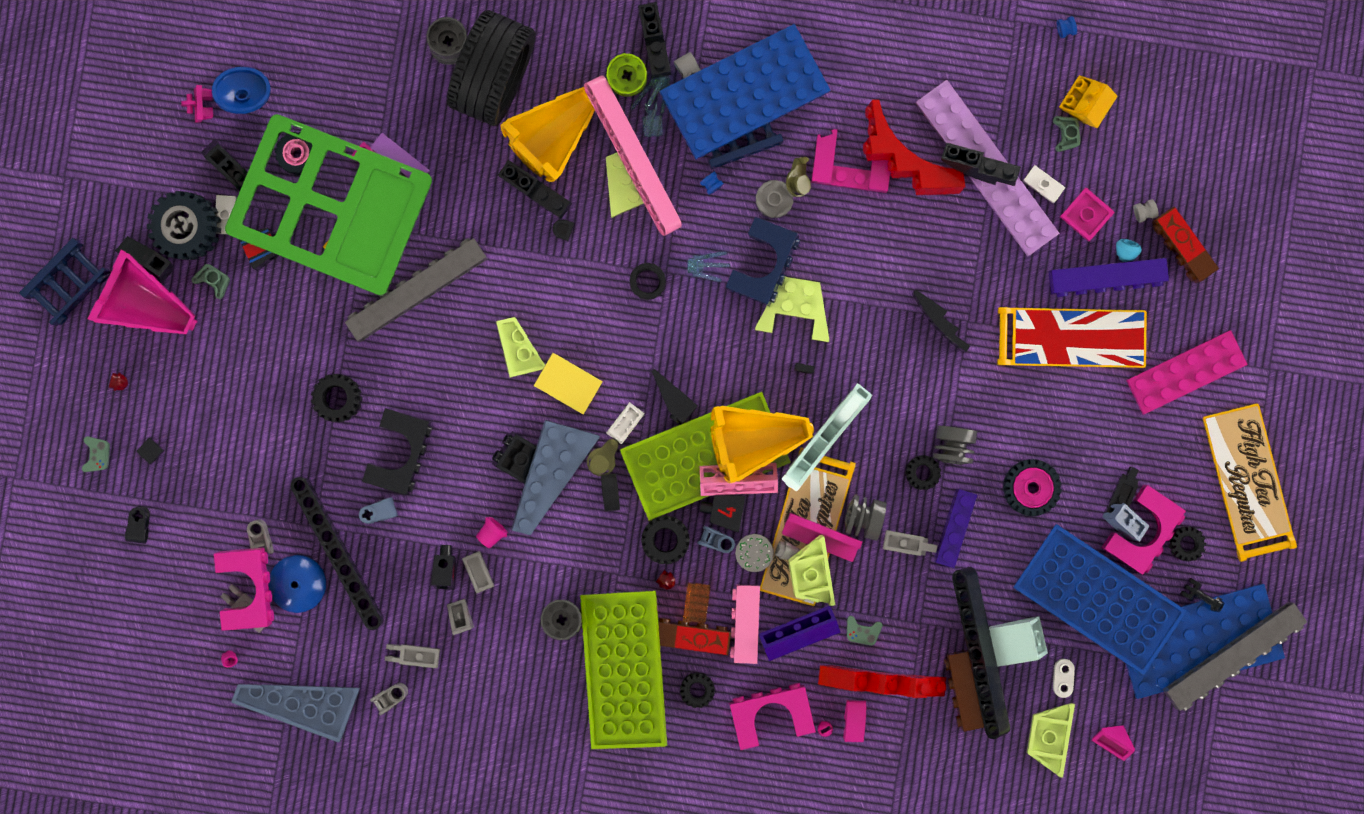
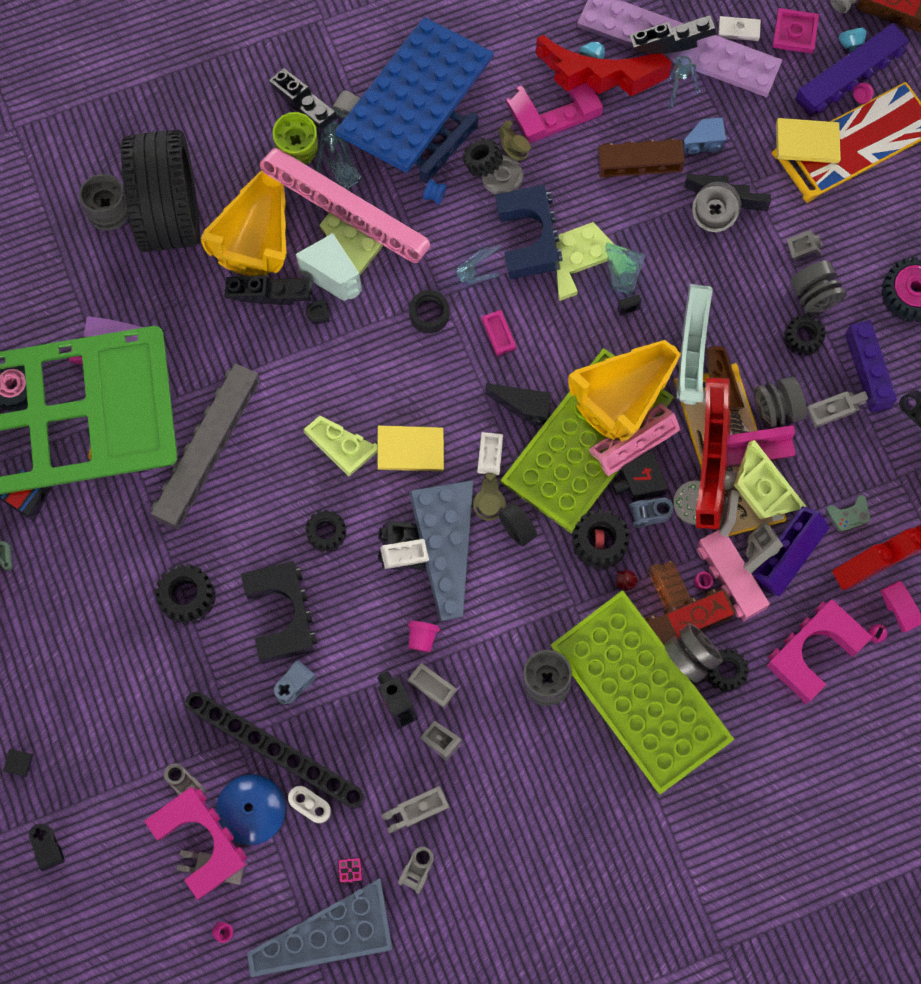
camera: 30 degrees left, 15 degrees down
(340, 606) = (310, 804): none -> white plate
(342, 669) = (350, 870): none -> tile
(456, 405) = (325, 517): none -> black tyre
(512, 466) = (404, 553): none -> white plate
(592, 203) = (330, 268): none -> light aqua slope
(664, 538) = (598, 539): none -> coral tile
(676, 667) = (693, 652): none -> flat silver wheel
(691, 329) = (498, 333): none -> dark pink tile
(724, 617) = (706, 580): none -> dark pink hinge
(769, 186) = (487, 164): none -> black tyre
(770, 579) = (729, 513): none -> light grey tile
(780, 617) = (761, 545): none -> light grey wing
(783, 536) = (715, 454): none -> red arch
(819, 335) = (624, 267): none -> clear light blue wing
(833, 474) = (720, 367): none -> reddish brown wing
(891, 251) = (640, 158): none -> reddish brown brick
(910, 137) = (593, 49): none -> medium azure cone
(920, 331) = (716, 219): none -> flat silver wheel
(954, 263) = (706, 136): none -> medium blue slope
(968, 199) = (682, 68): none -> clear light blue plant
(971, 401) = (805, 245): none -> light grey bracket
(1031, 316) = (808, 140): none -> light yellow tile
(1104, 301) = (863, 93): none -> dark pink plate

